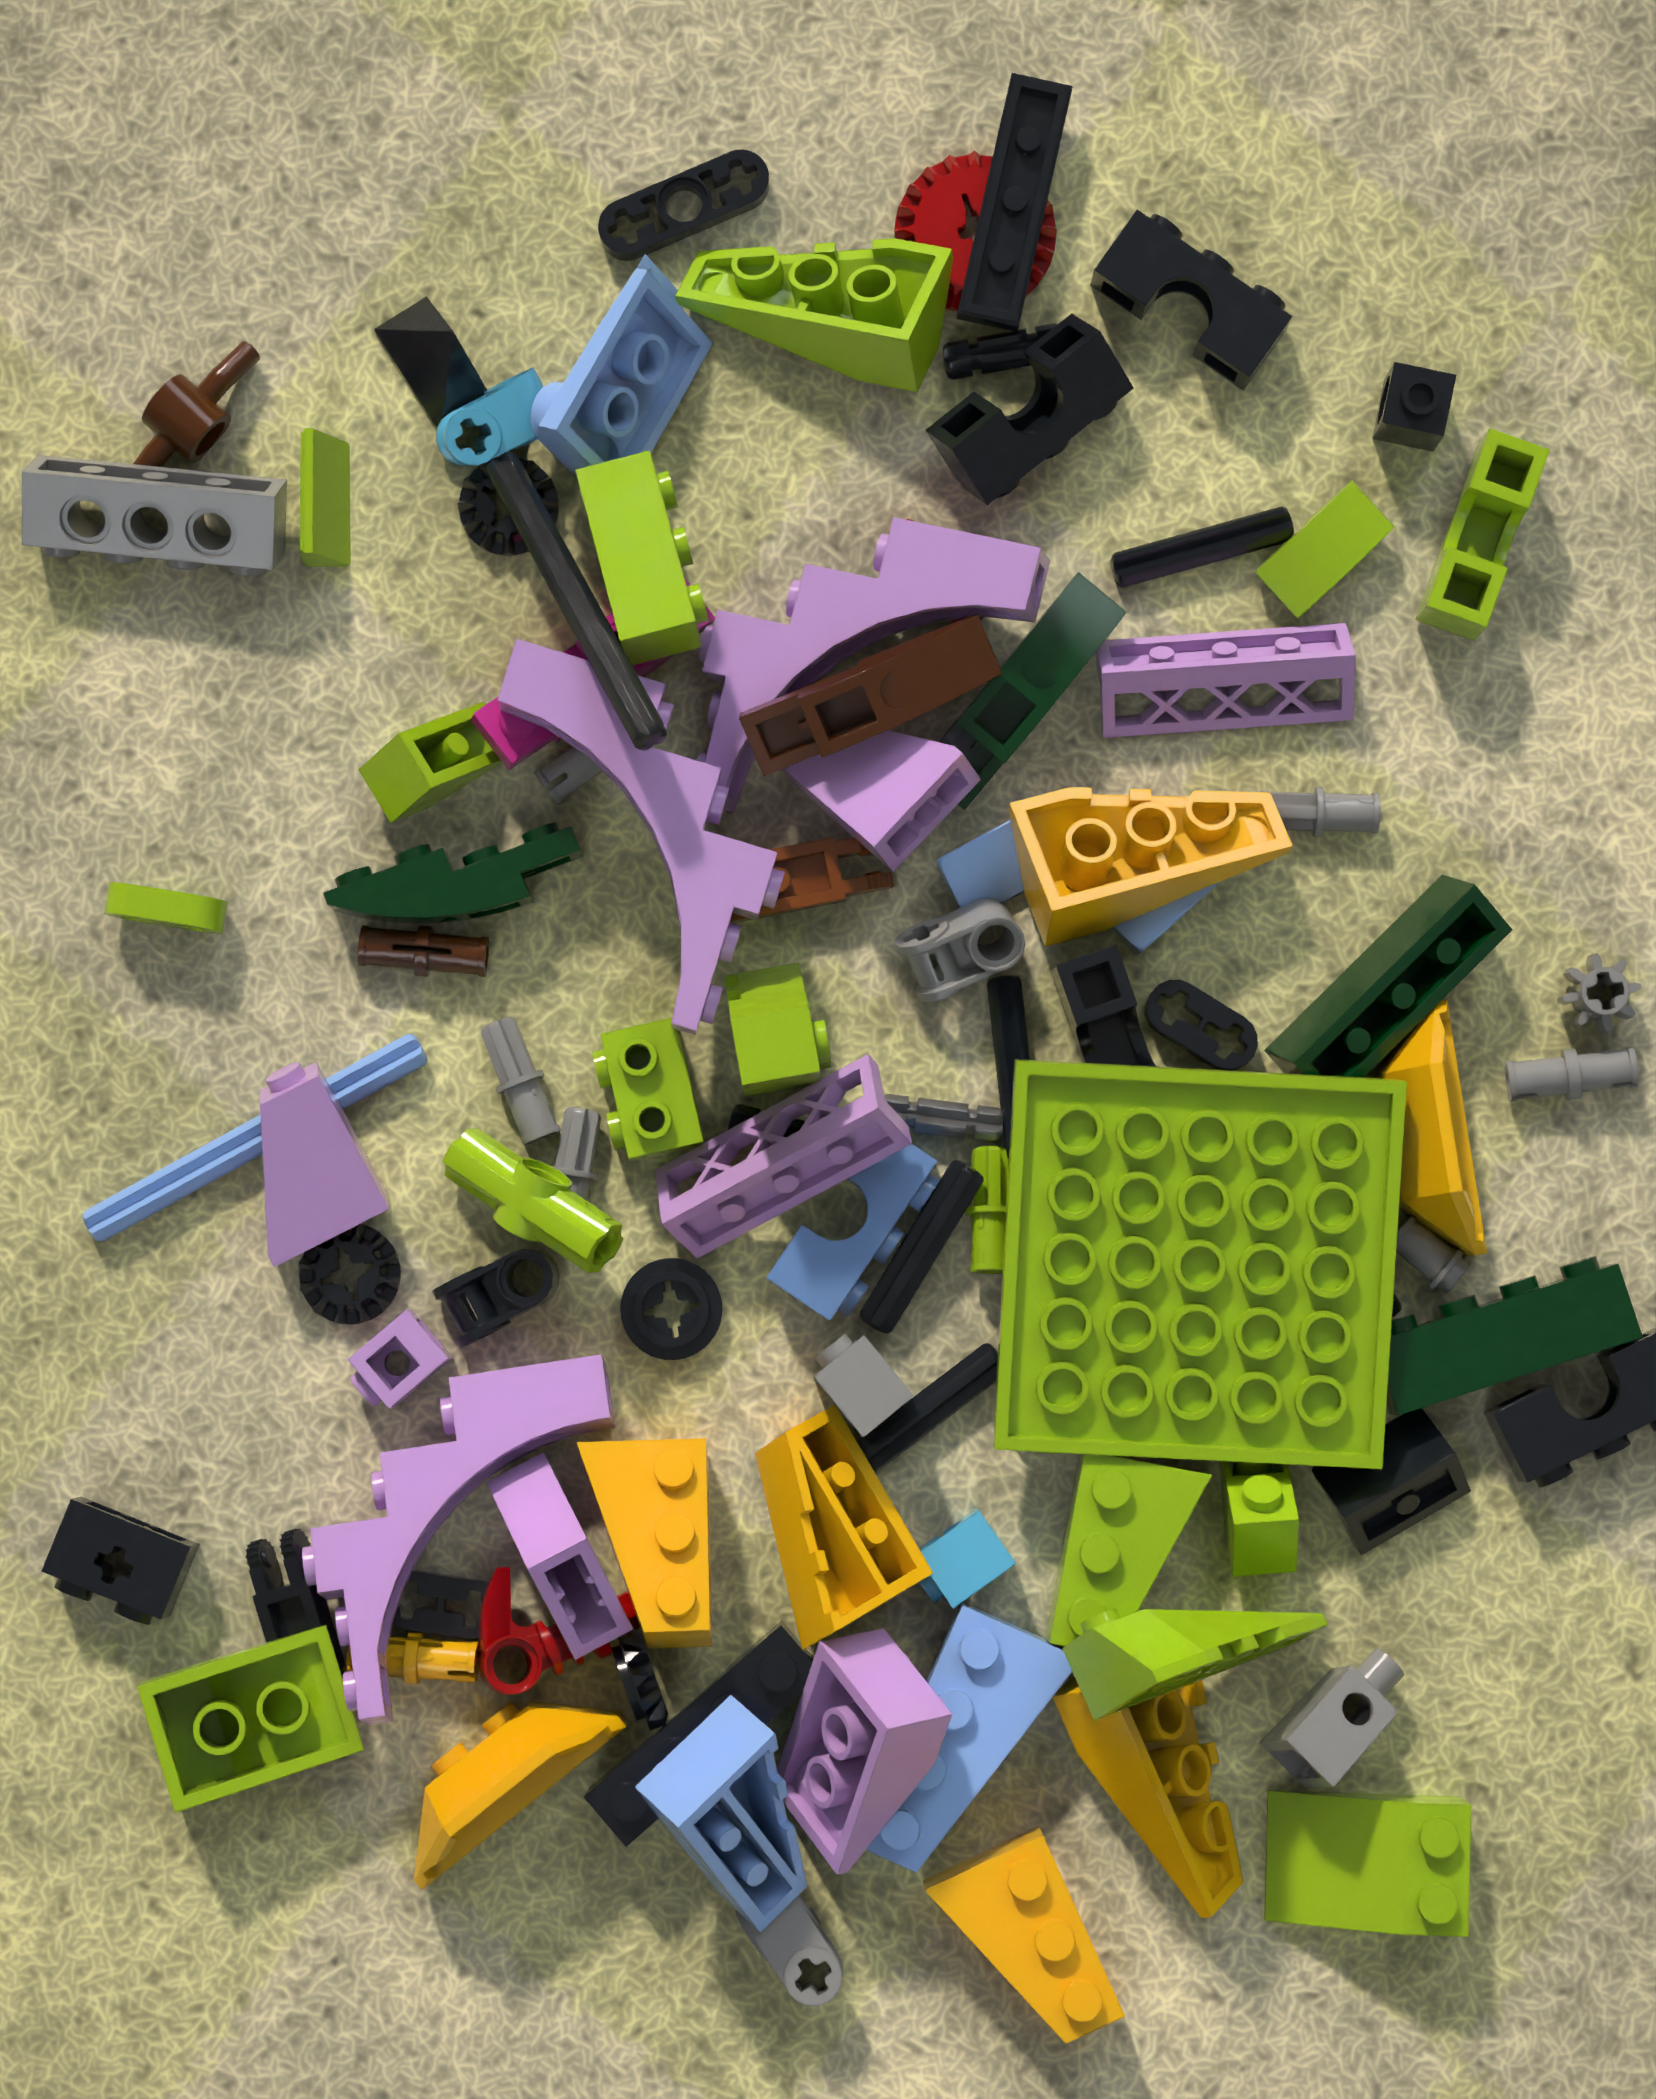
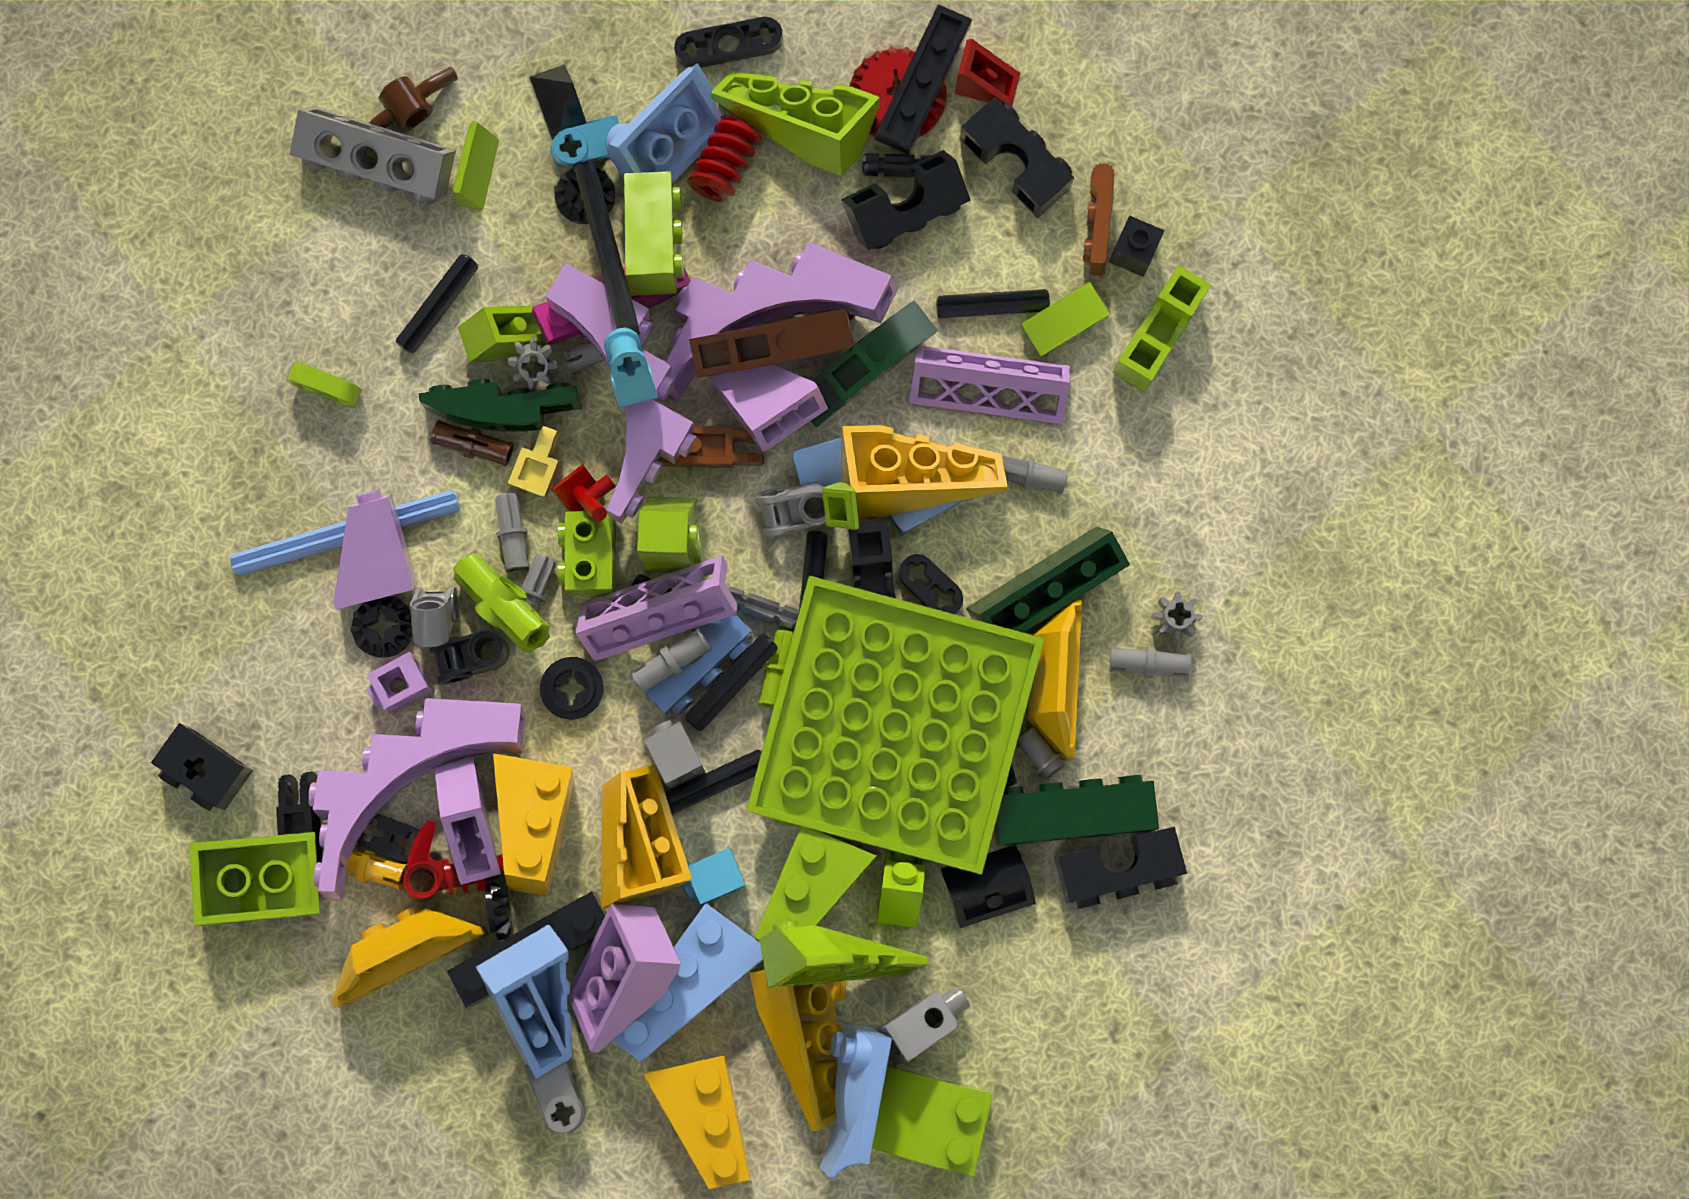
camera: 10 degrees right, 5 degrees down
(314, 736) = (437, 303): none -> black axle
(429, 1245) = (433, 616): none -> light grey piece
(507, 809) = (540, 368): none -> light grey gear
(534, 972) = (535, 469): none -> light yellow plate
(619, 993) = (581, 492): none -> red arm
(661, 793) = (629, 368): none -> medium azure piece
(720, 401) = (722, 157): none -> red piece
(824, 1237) = (671, 660): none -> light grey pin
(1038, 935) = (840, 506): none -> lime slope
(1113, 175) = (985, 75): none -> red slope
(1264, 1849) = (860, 1077): none -> light blue slope
(1345, 370) = (1099, 216): none -> dark orange hinge

